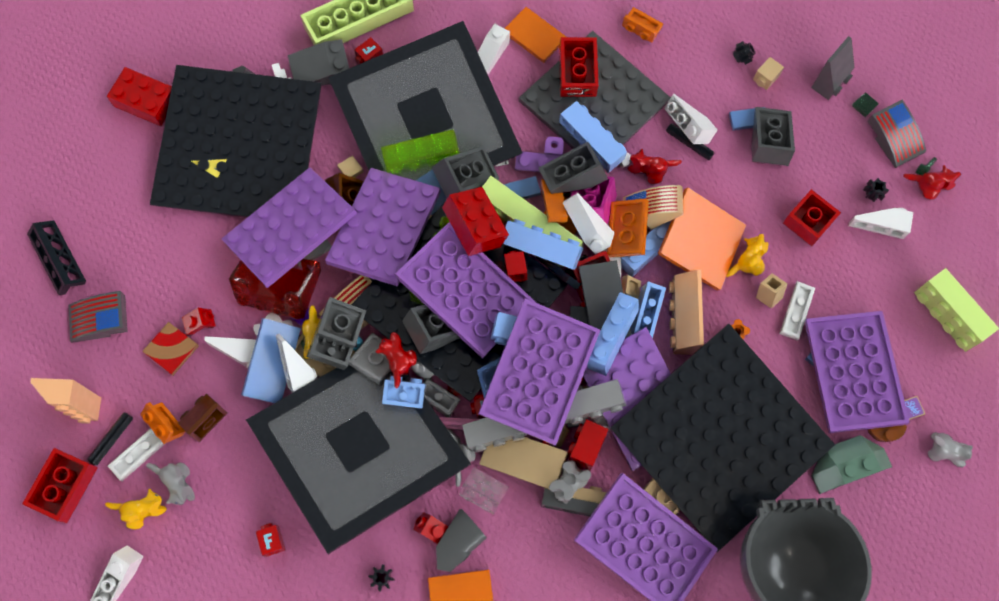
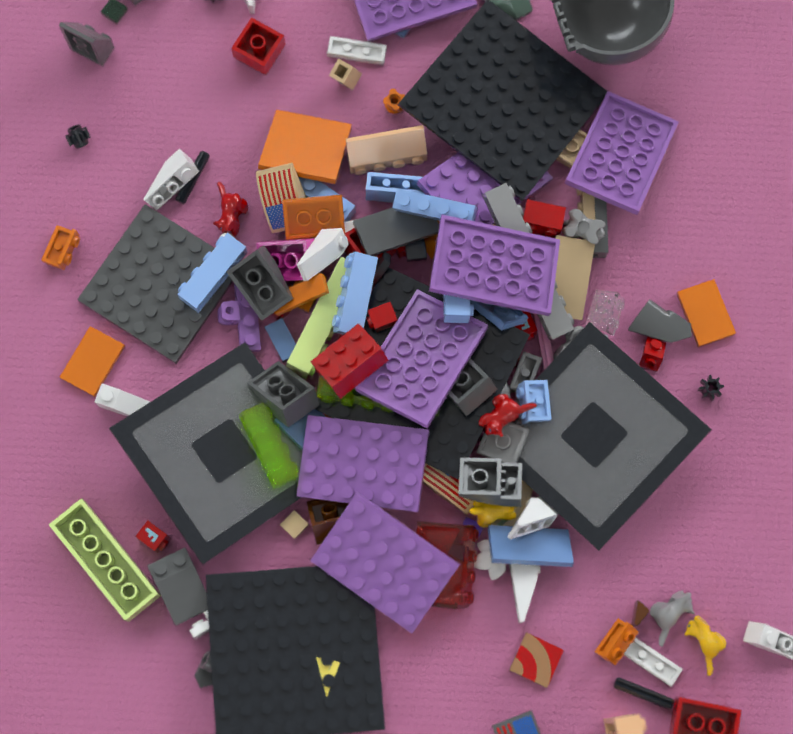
camera: 100 degrees left, 5 degrees up
(183, 452) = (639, 613): none -> reddish brown slope
(197, 320) = (501, 638): red bracket -> none
(202, 417) = (602, 602): reddish brown slope -> none
(270, 540) = (702, 501): red brick -> none
(578, 67) = (134, 300): red brick -> none
(631, 286) = (367, 208): tan tile -> none
(742, 119) = (153, 123): medium blue tile -> none
(751, 259) = (315, 98): yellow animal -> none
(768, 73) = (98, 109): tan brick -> none
(772, 136) = (172, 94): dark grey slope -> none

